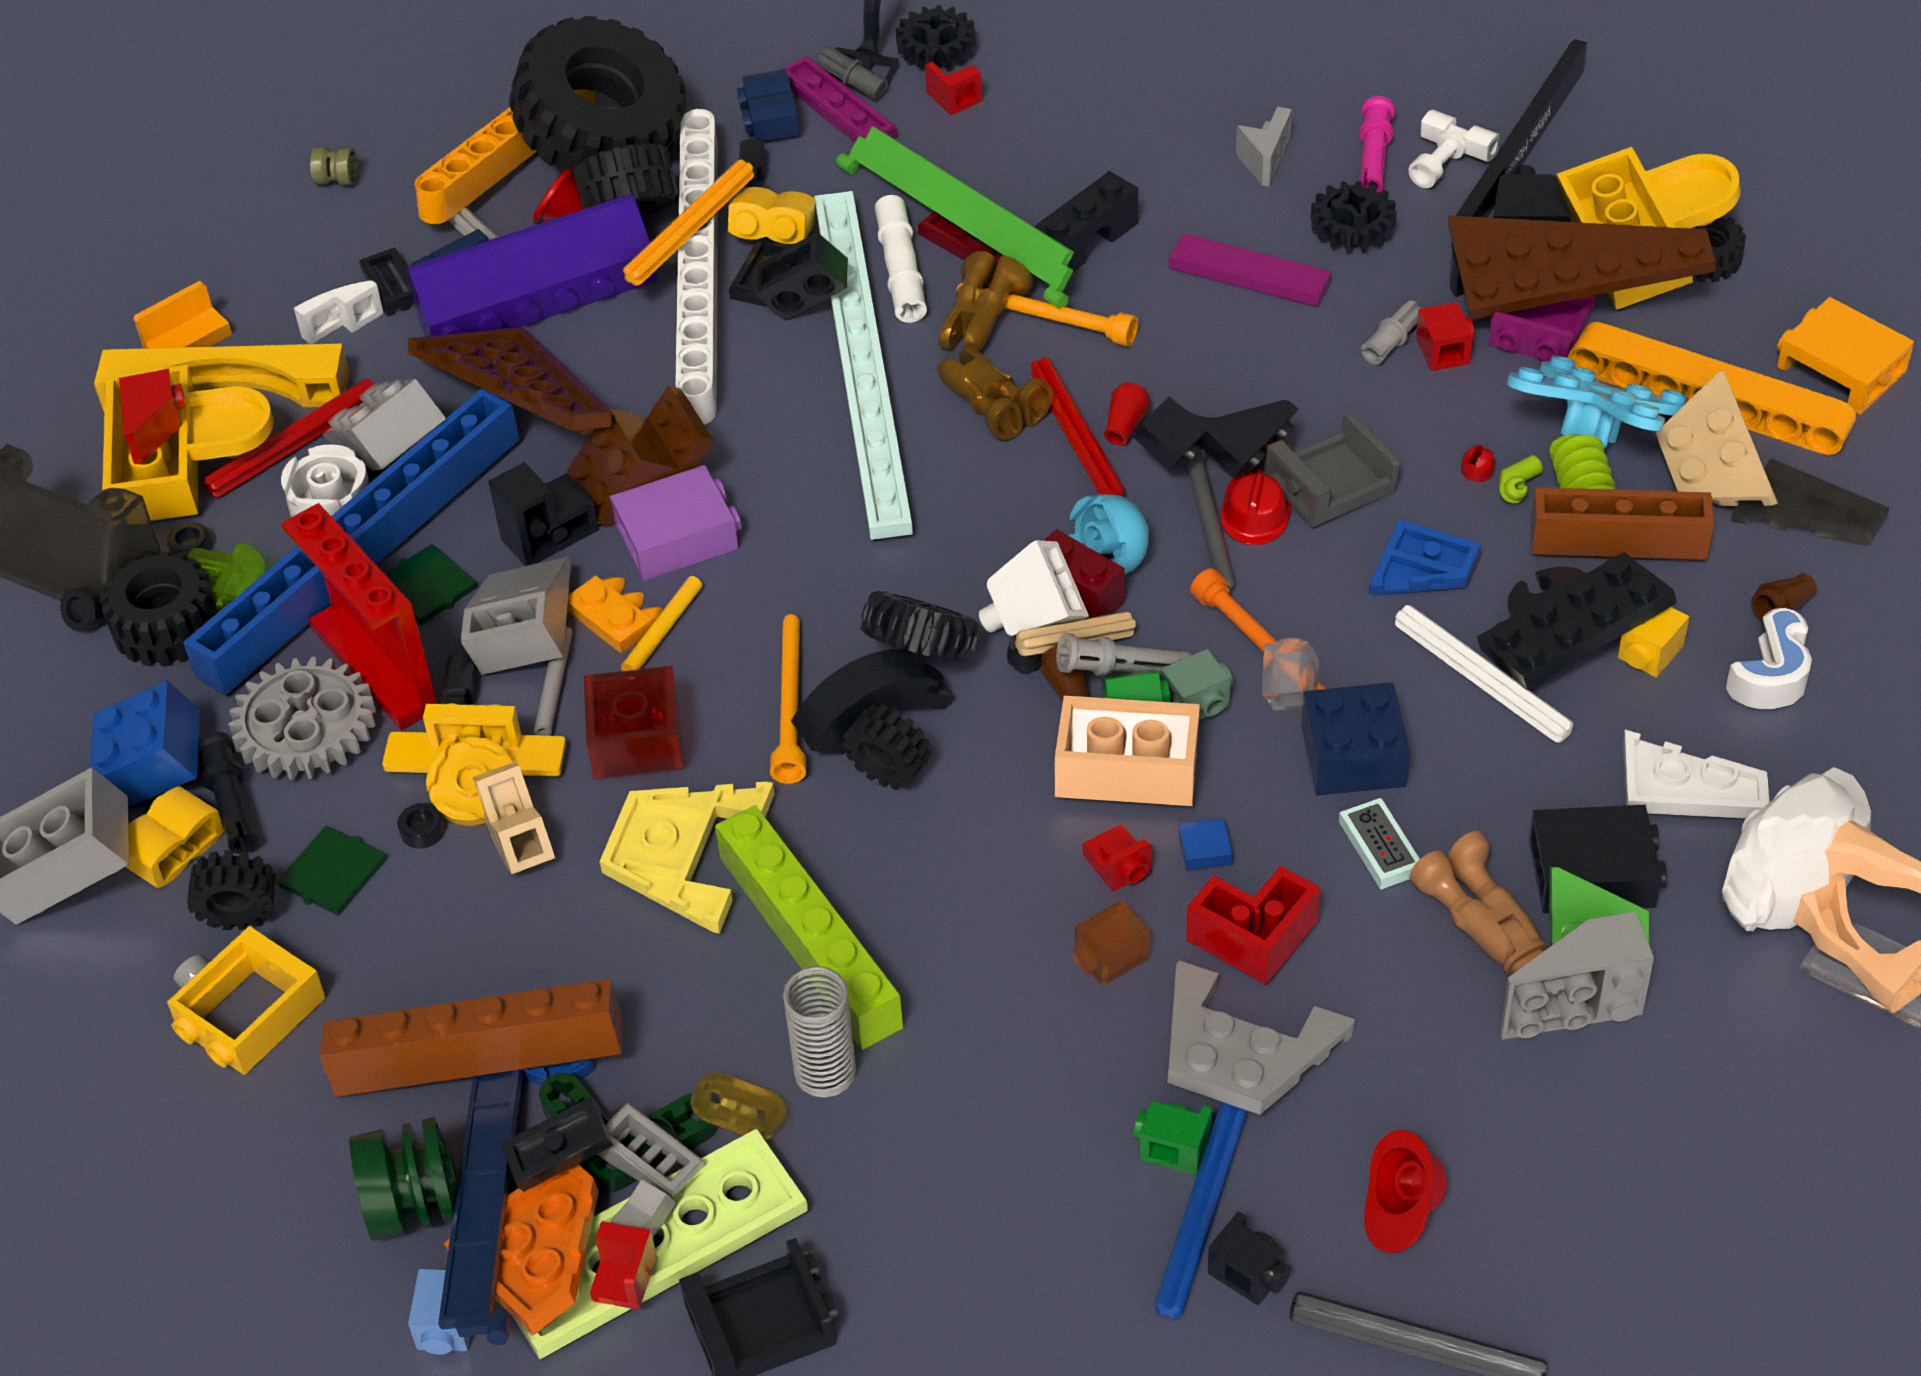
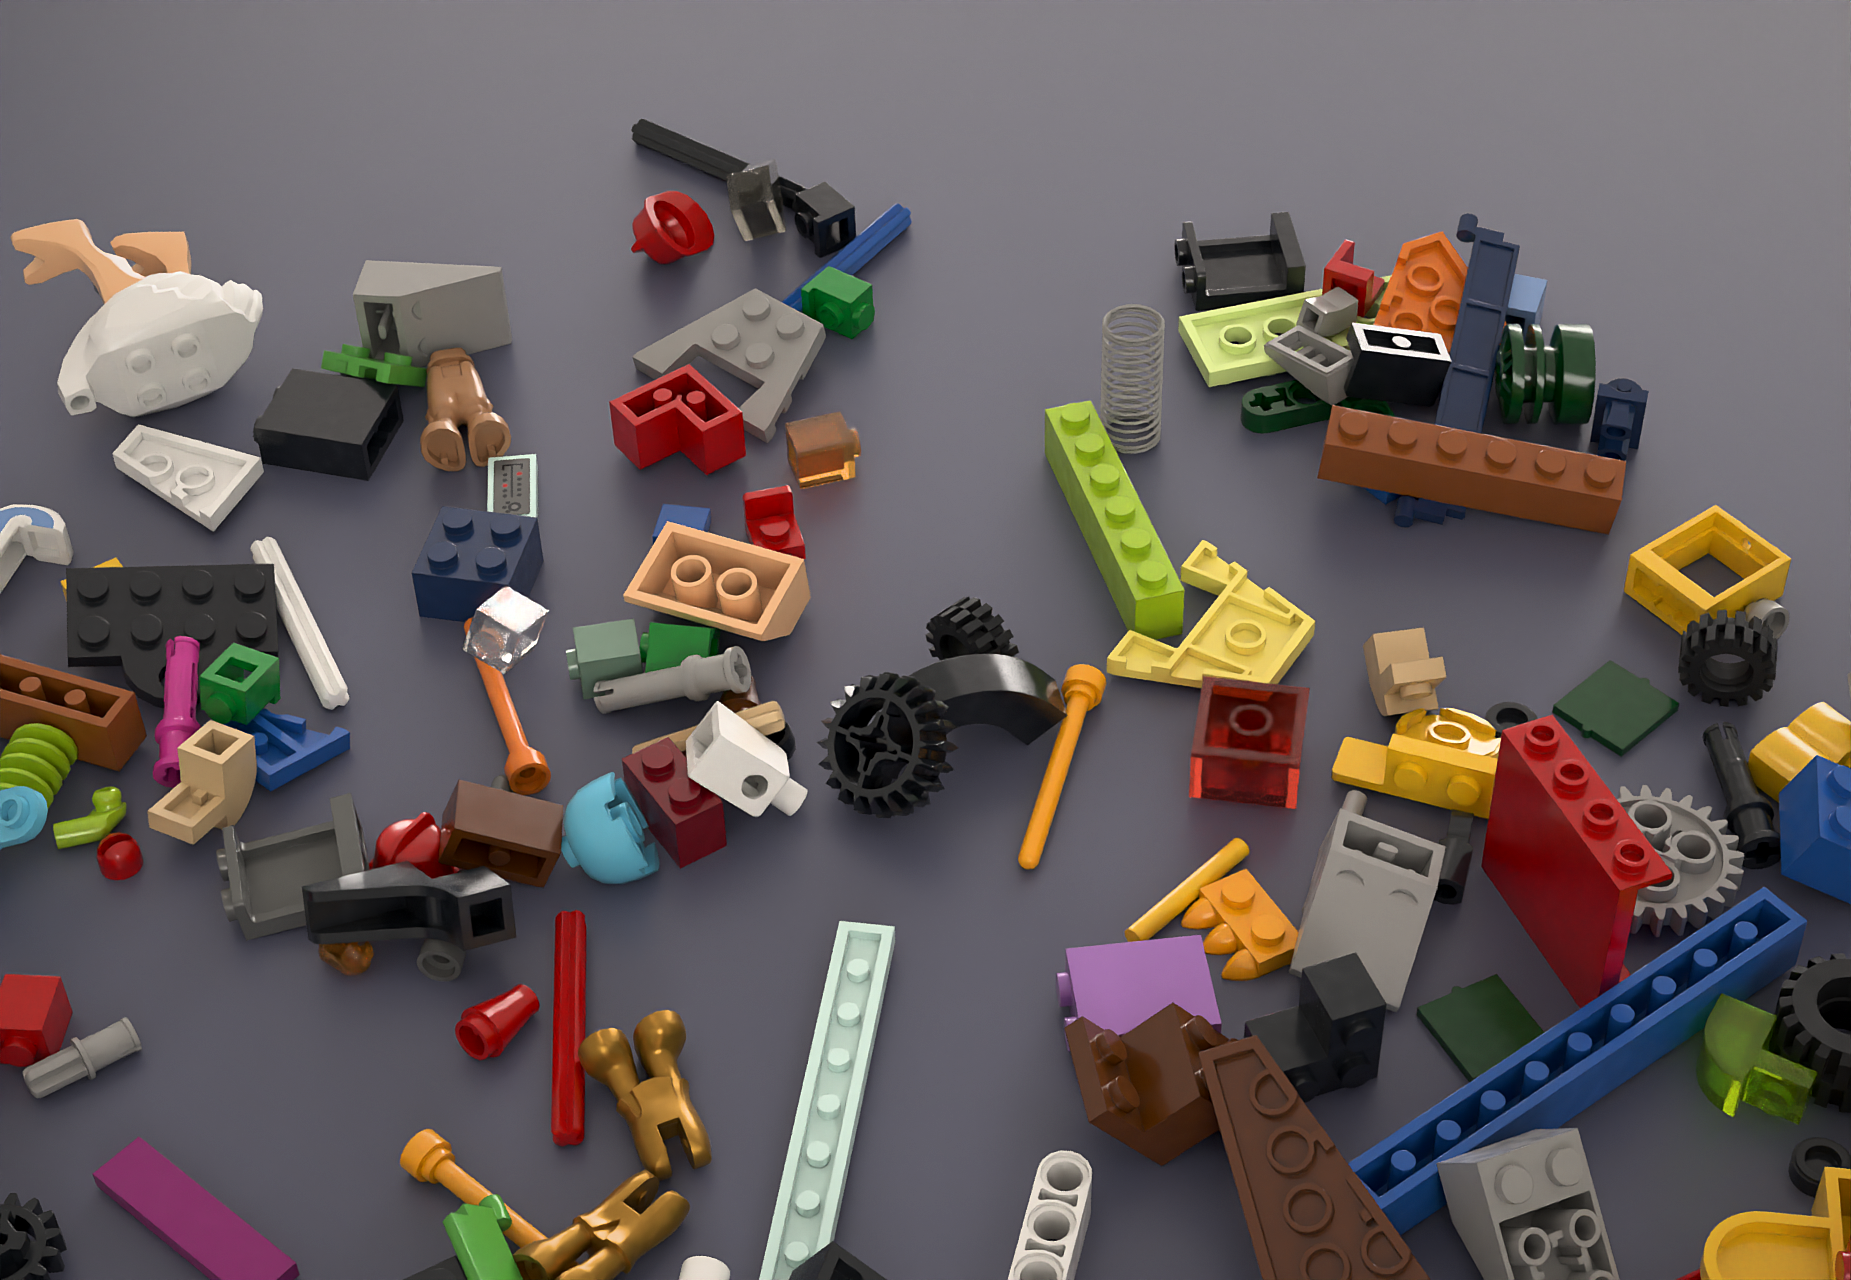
camera: 165 degrees left, 5 degrees down
(325, 476) = (1627, 1142): white brick -> none
(325, 1144) = (1618, 418): none -> dark blue hips
(737, 1105) = (1221, 393): clear yellow beam -> none
(1190, 510) = (502, 831): none -> reddish brown brick
(1336, 1258) = (756, 199): none -> clear smoke slope
(1439, 493) = (214, 787): none -> tan brick
(1465, 559) = (229, 695): none -> green brick
(1499, 541) = (179, 707): none -> dark pink pin

